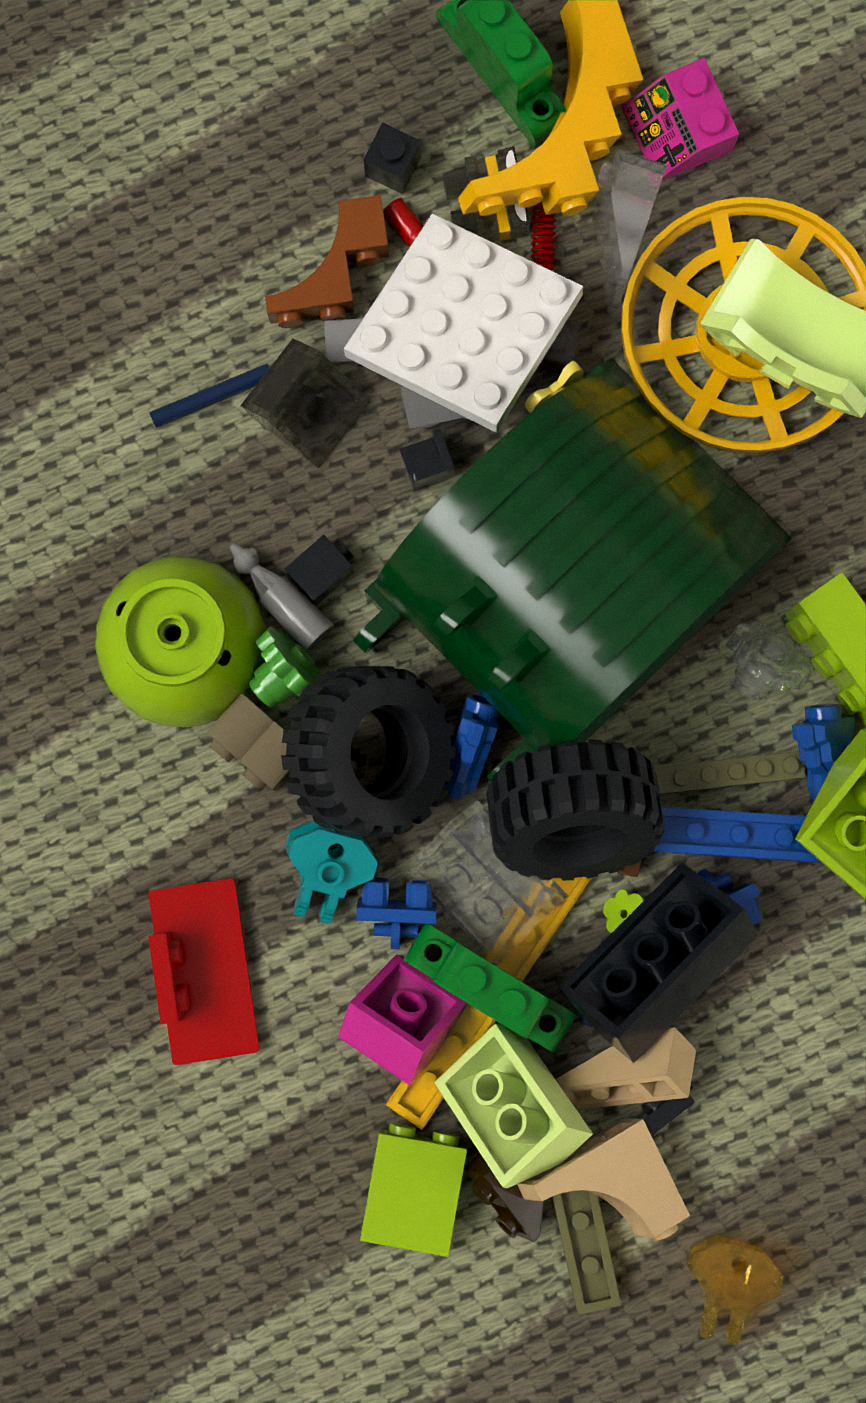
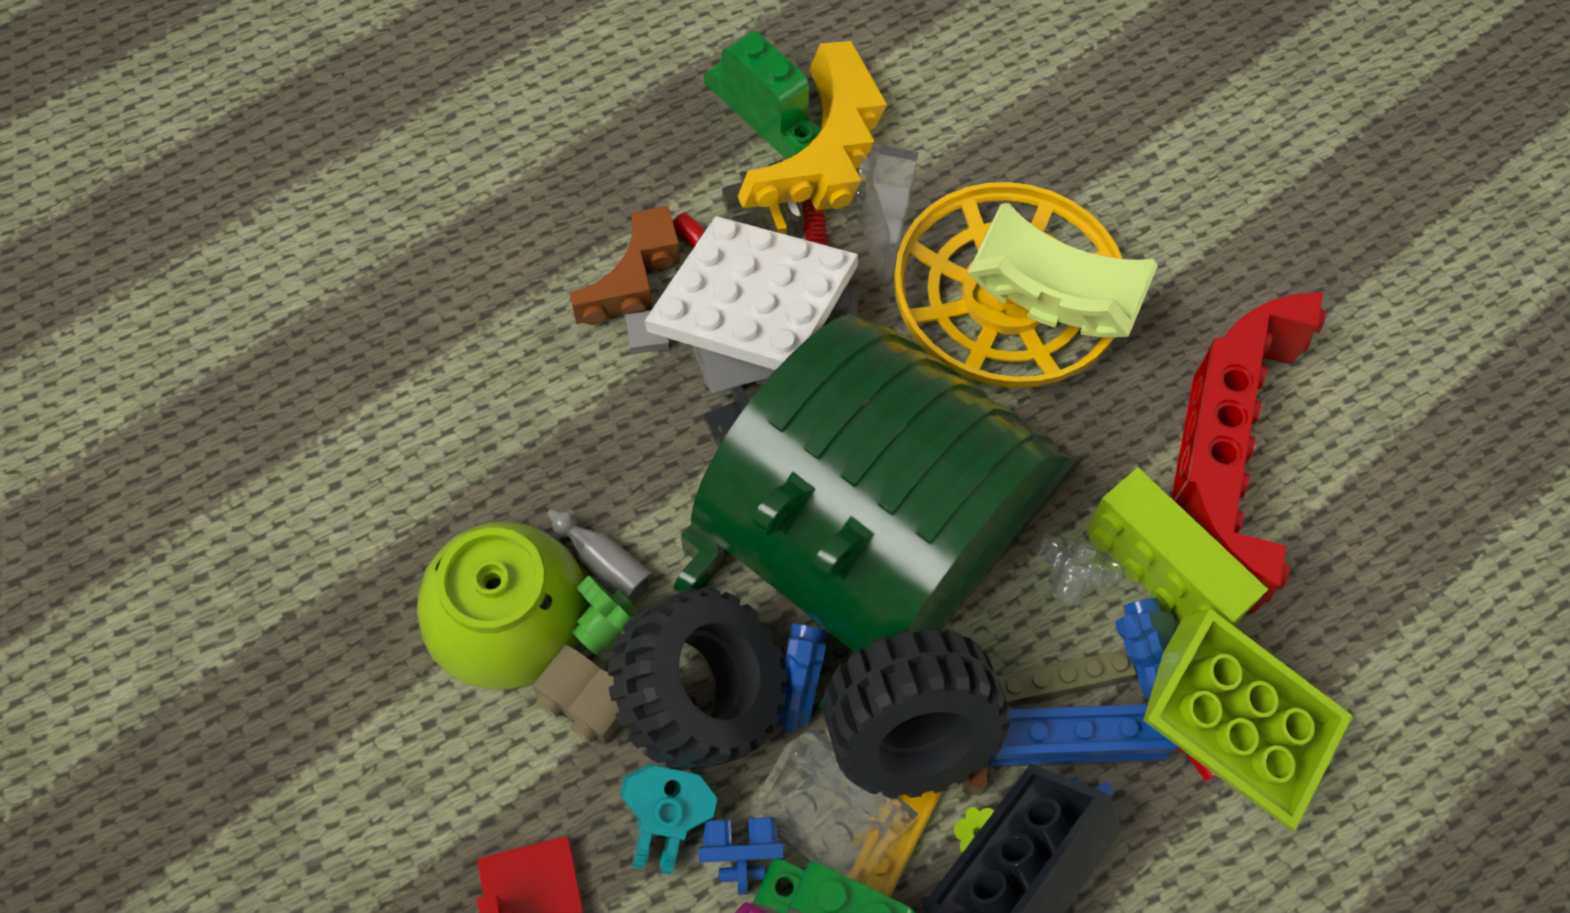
camera: 10 degrees left, 20 degrees down
(208, 396) = (524, 386): dark blue bar -> none
(305, 402) = (613, 381): clear smoke slope -> none
(321, 568) = (637, 523): black brick -> none
(392, 158) = (676, 181): black brick -> none
(682, 119) = (931, 126): dark pink slope -> none

